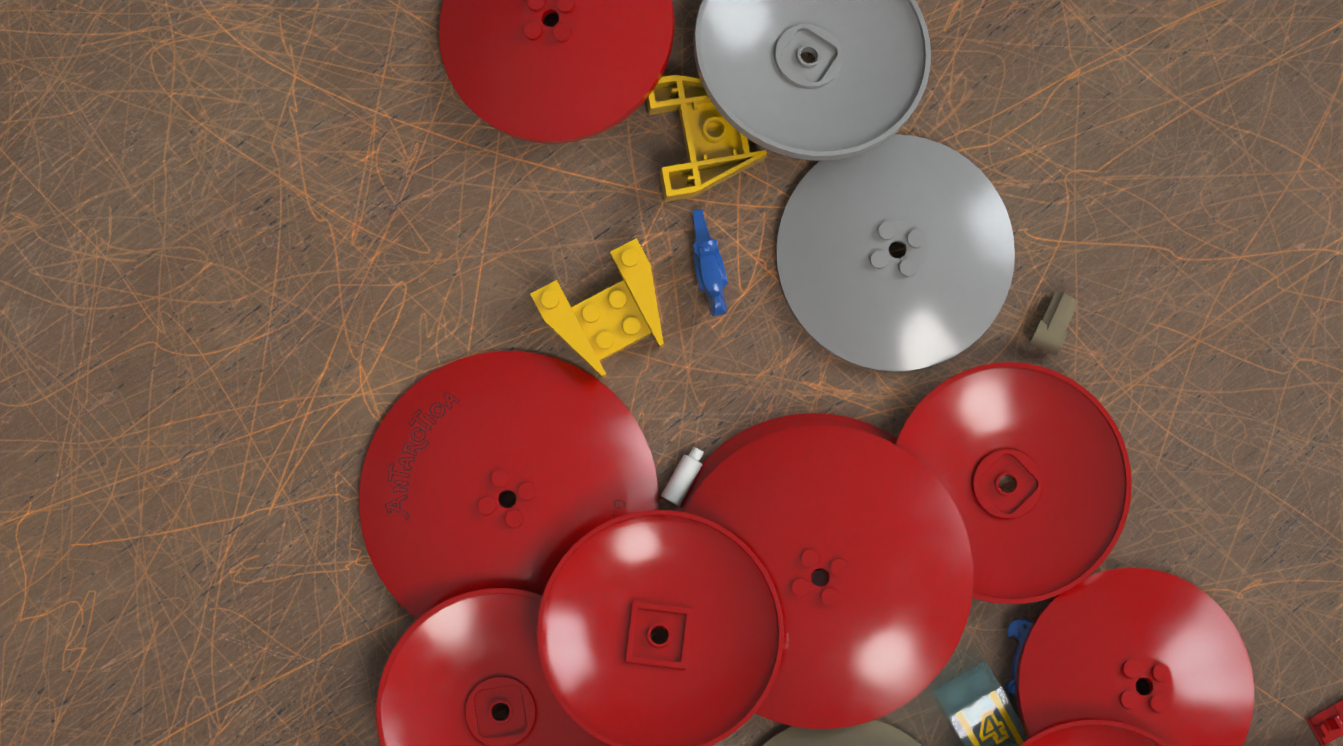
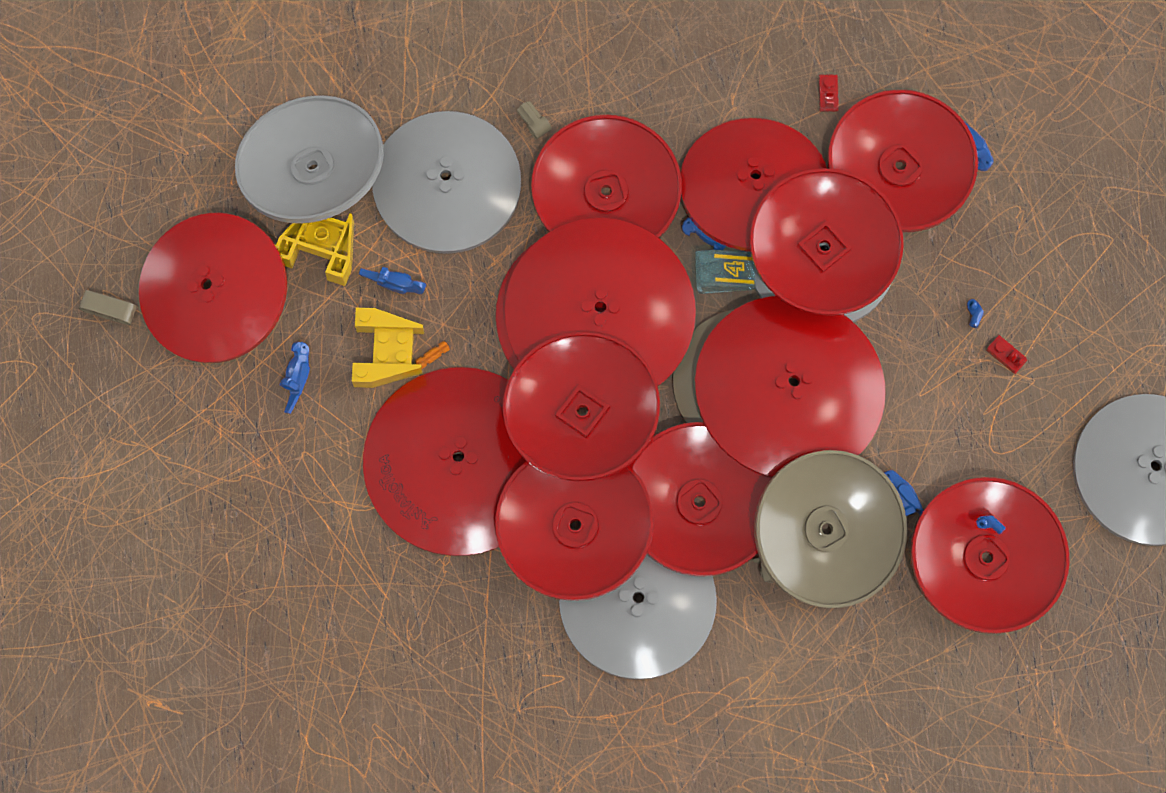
camera: 60 degrees left, 10 degrees down
(502, 211) = (296, 374): none -> blue animal
(634, 378) = (433, 354): none -> orange axle
(683, 477) = (502, 358): white cylinder -> none

